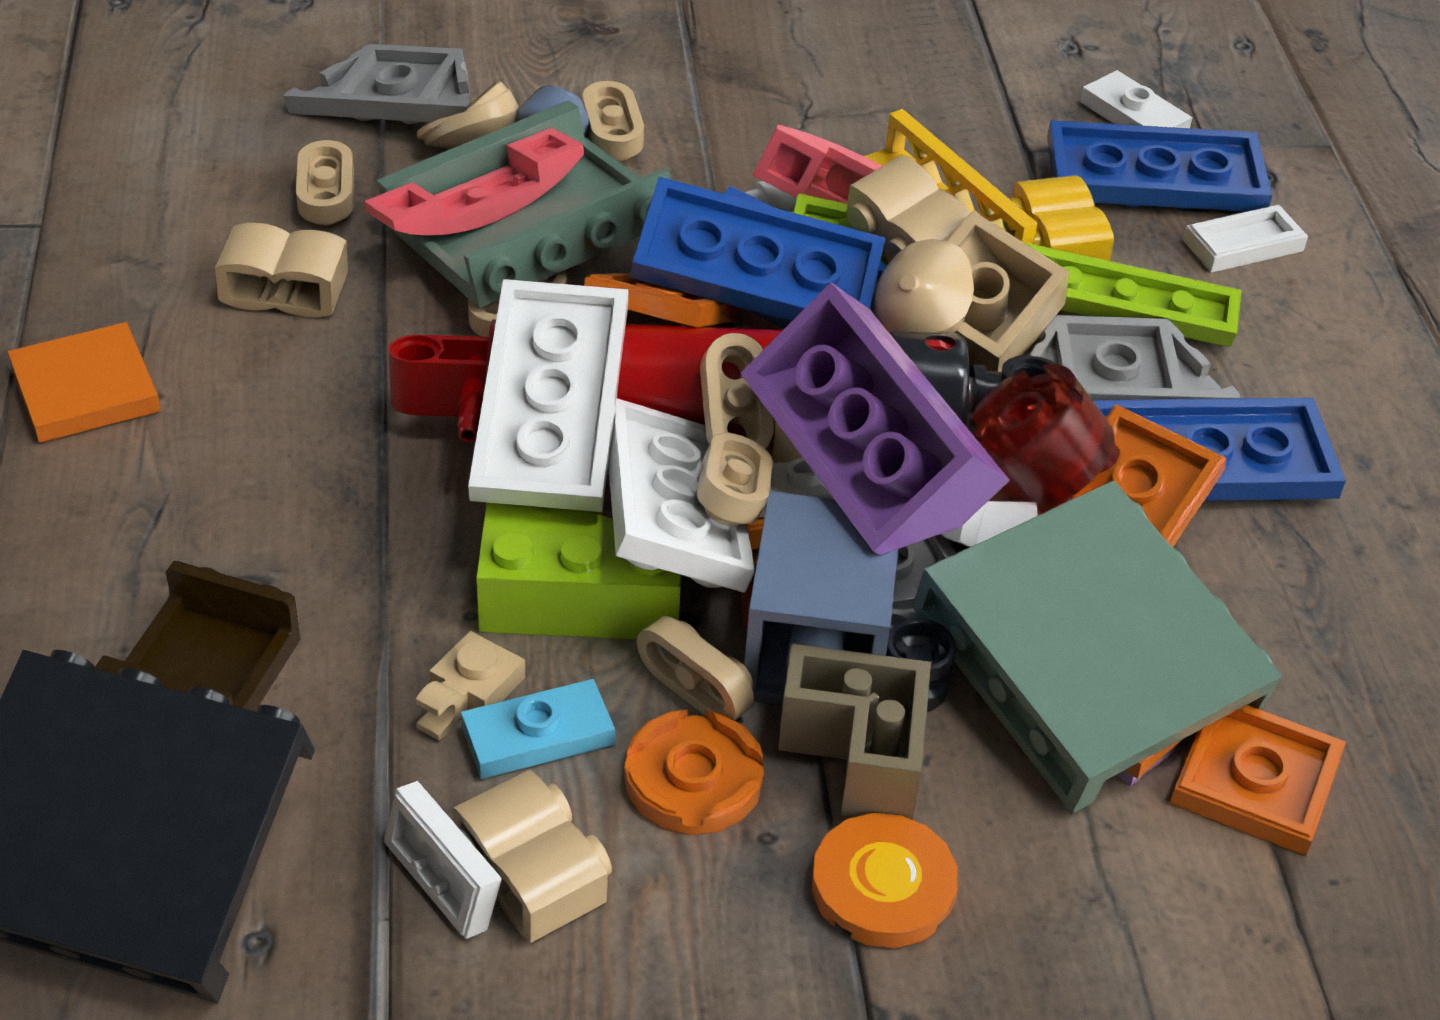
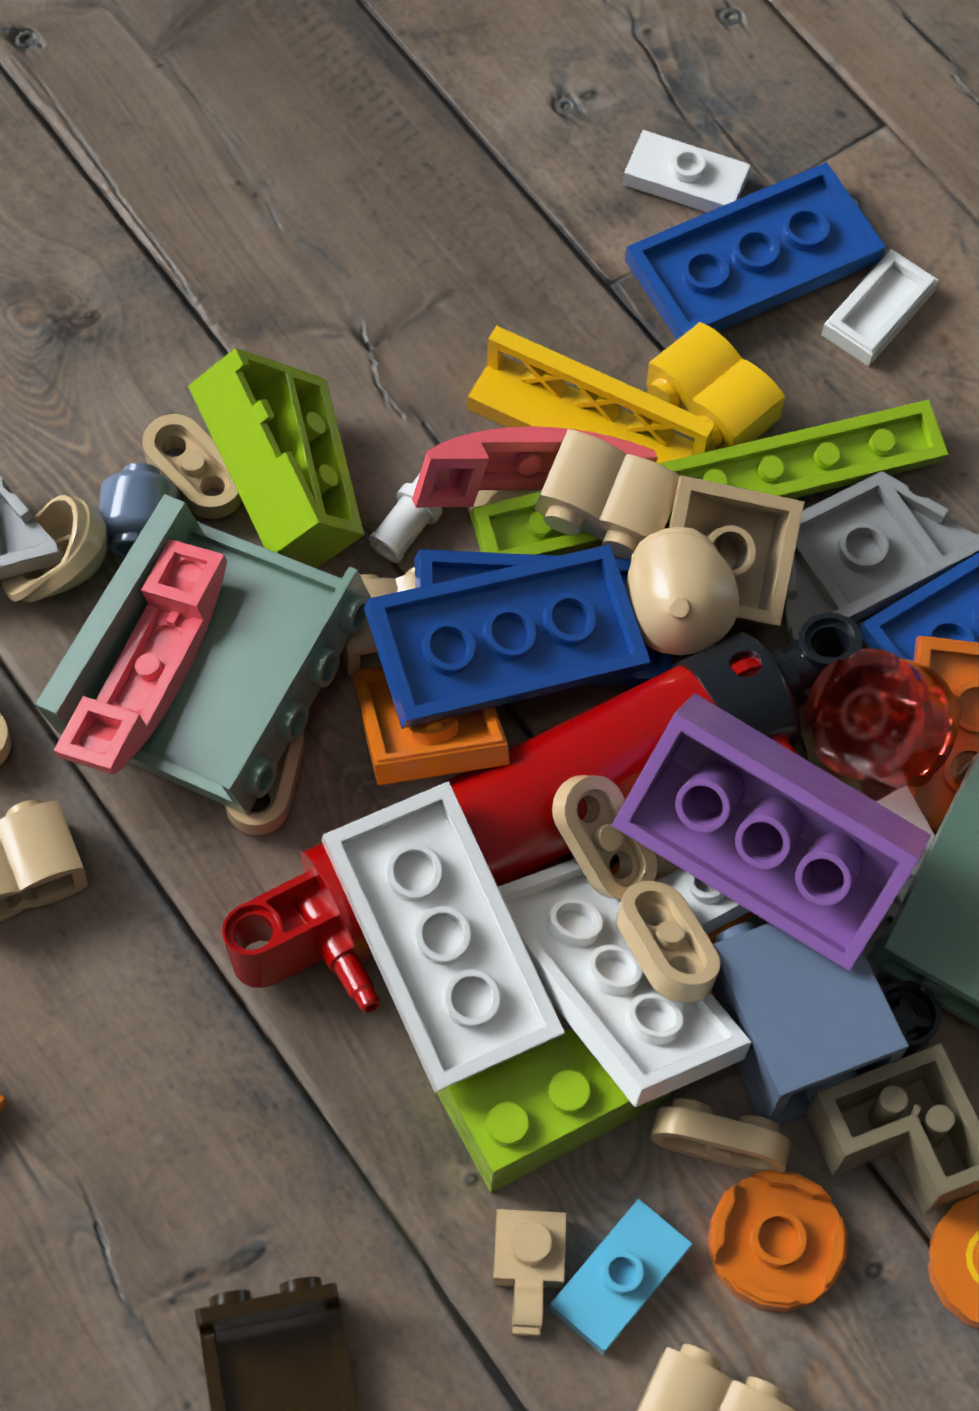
camera: 30 degrees left, 20 degrees up
(680, 109) = (282, 454): none -> lime wedge

